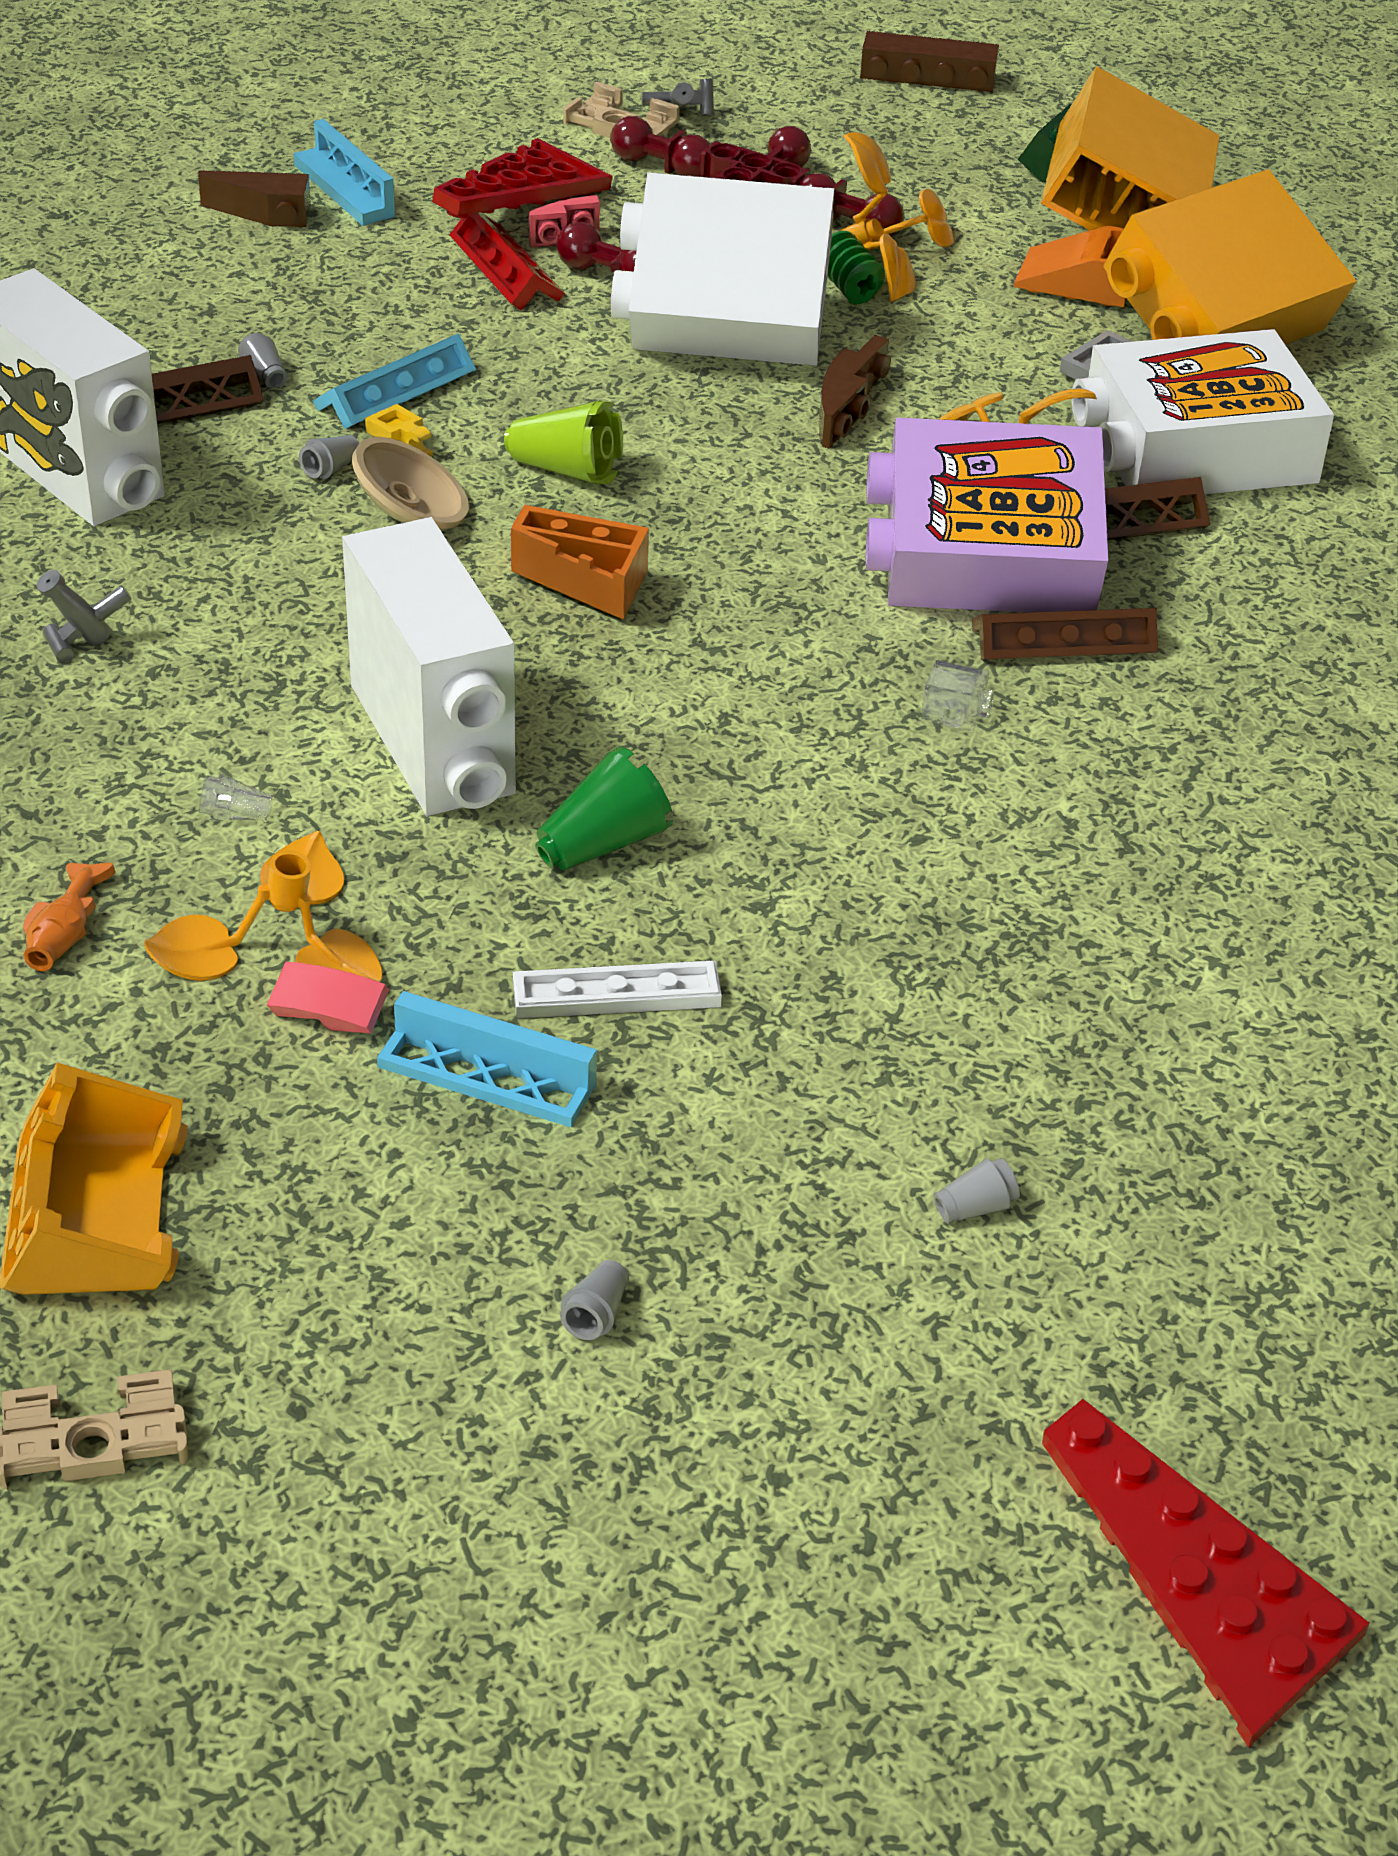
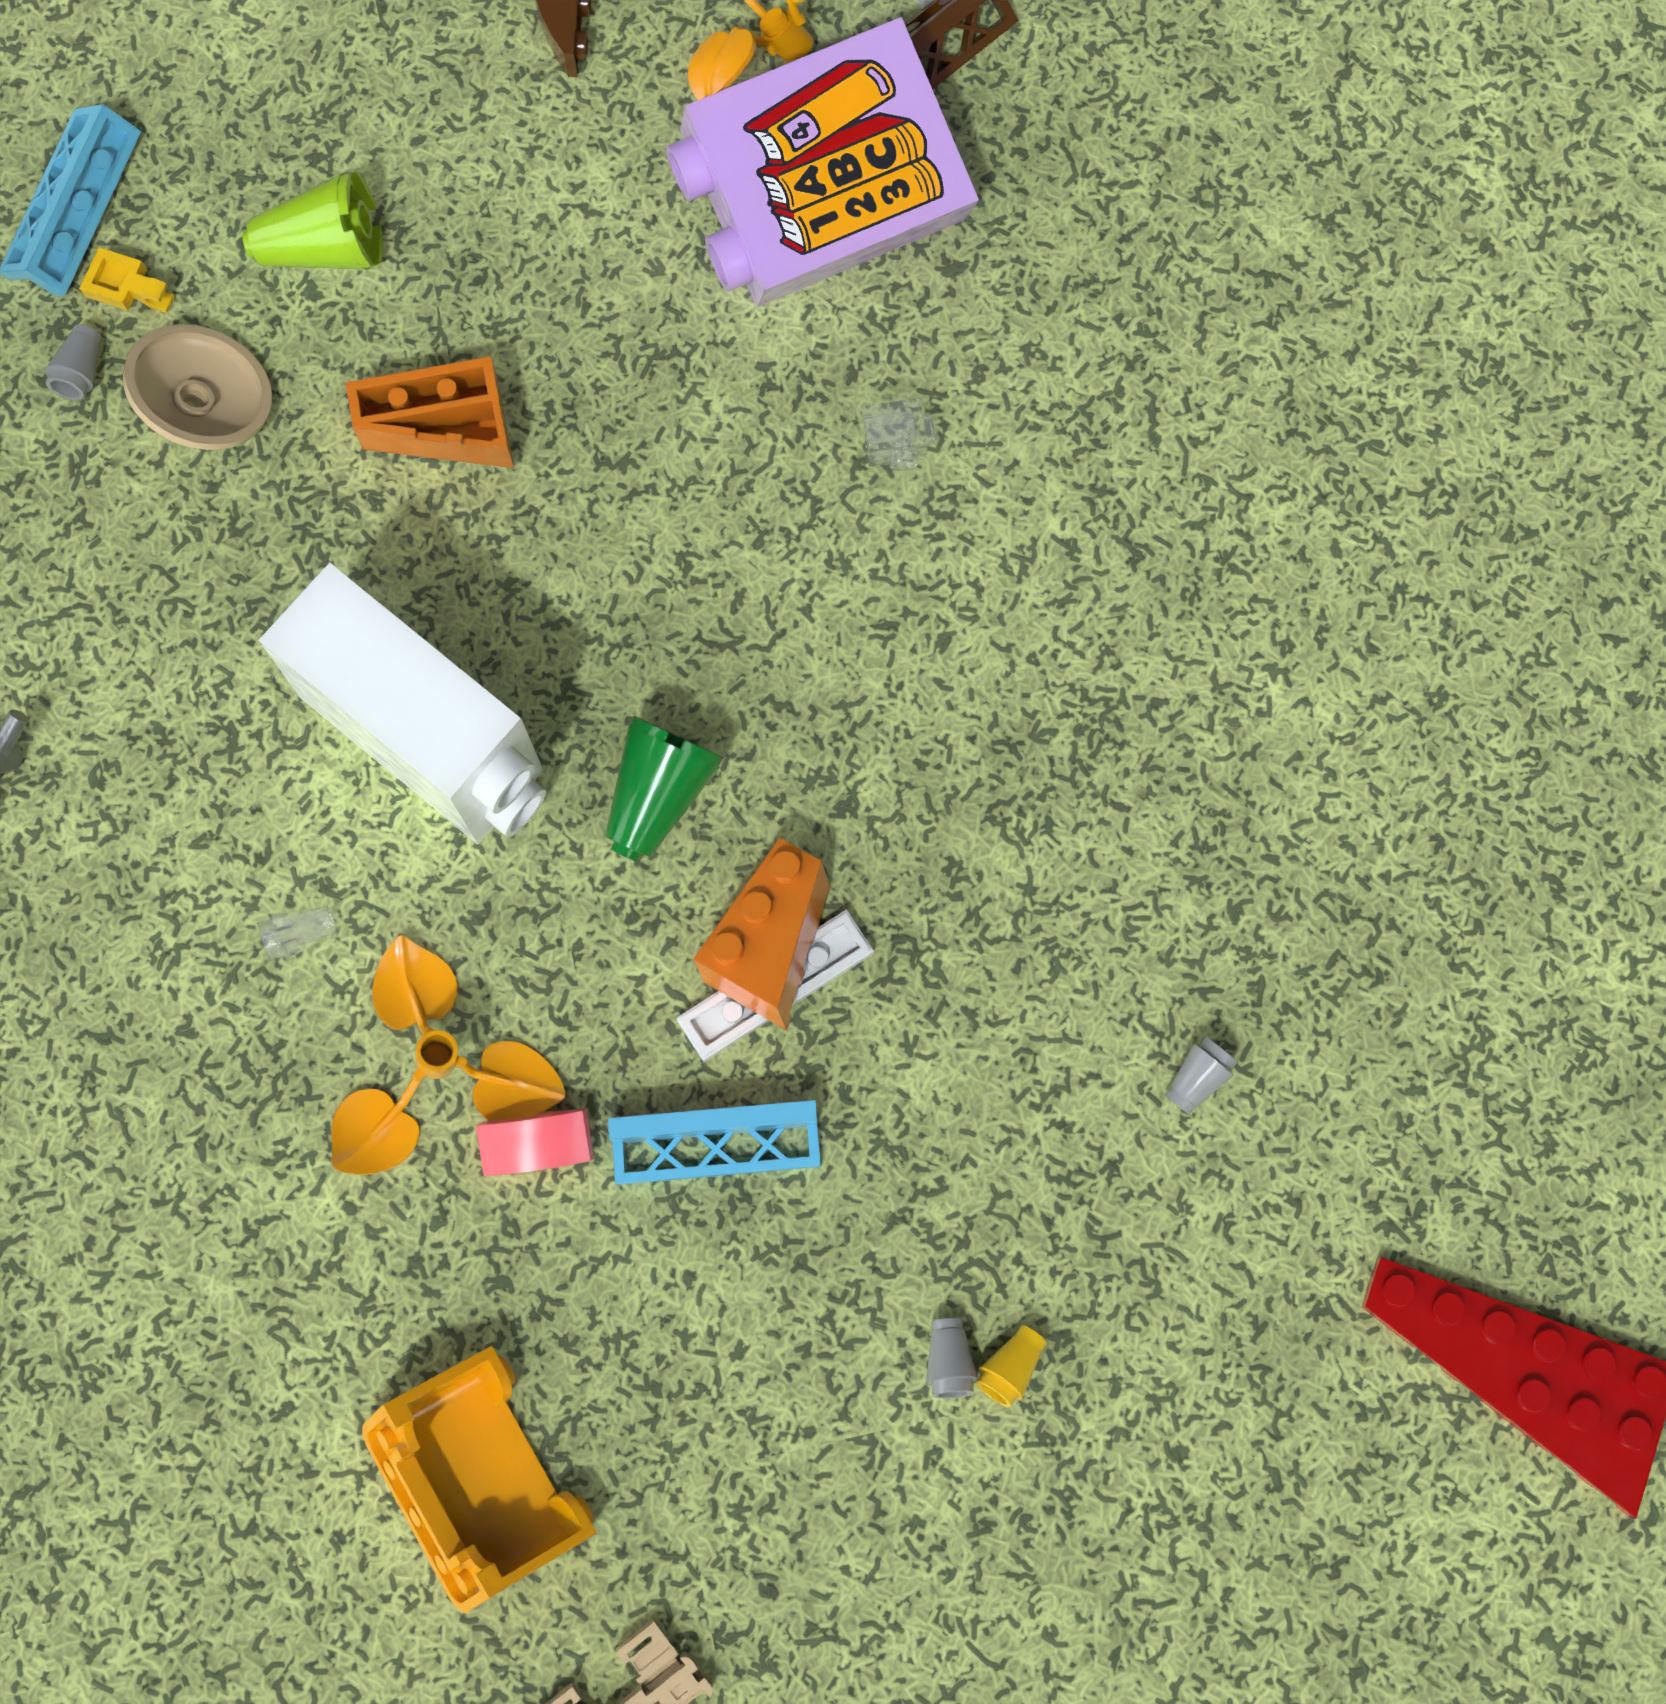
camera: 25 degrees left, 35 degrees up
(57, 925) = (230, 1169): orange animal -> none
(631, 930) = (766, 934): none -> orange wedge
(649, 1329) = (1009, 1370): none -> yellow cone
(1067, 633) = (953, 274): reddish brown fence -> none

